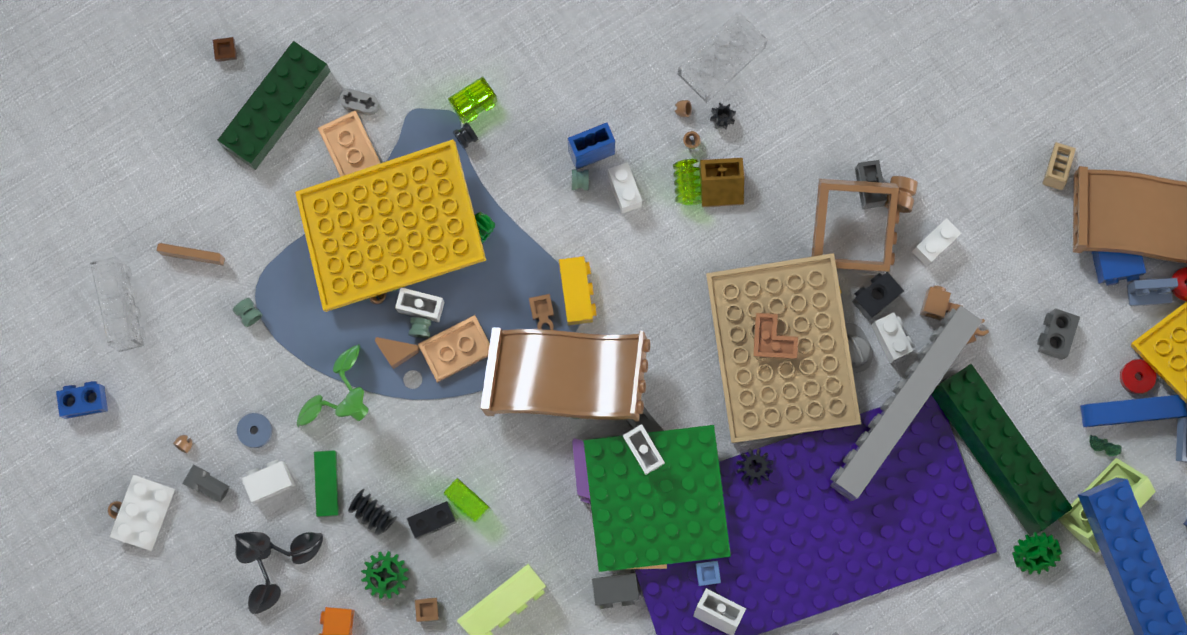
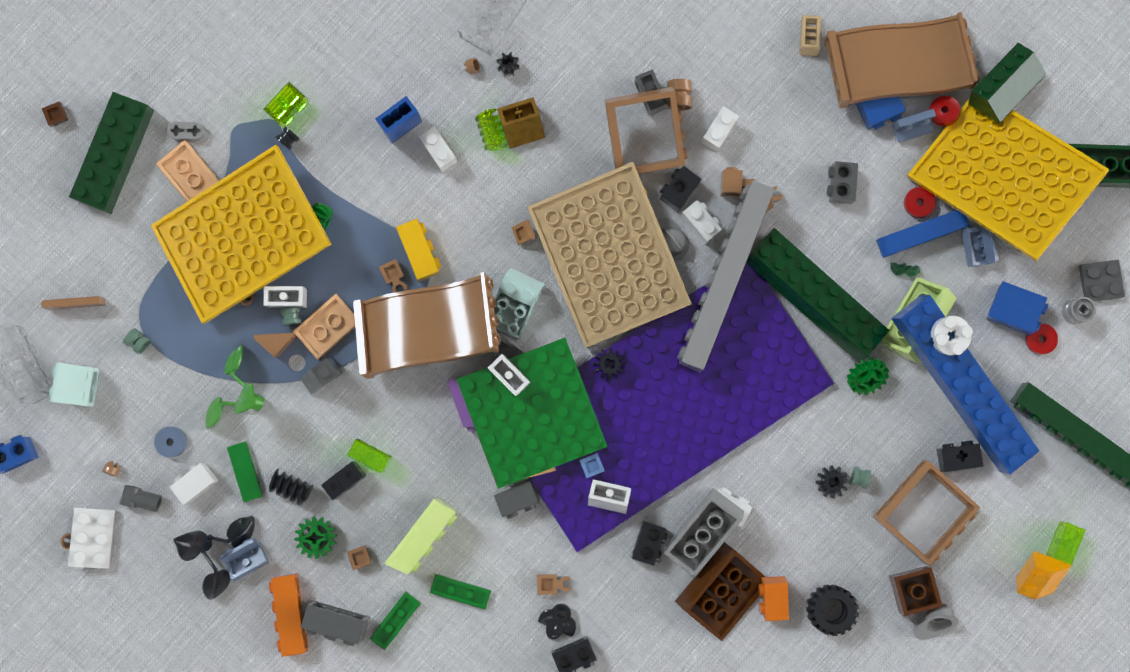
camera: 15 degrees left, 5 degrees up
(169, 341) = (74, 384): none -> light aqua slope
(301, 578) = (244, 559): none -> sand blue bracket
(436, 399) = (321, 375): none -> dark grey slope
(580, 179) = (397, 151): sand green wheel -> none
(669, 373) = (516, 302): none -> light aqua slope
(687, 141) = (483, 94): medium nougat hinge -> none
(694, 300) = (523, 232): none -> medium nougat plate
(768, 343) = (595, 254): nougat plate -> none
(1153, 529) = (961, 331): none -> white plate

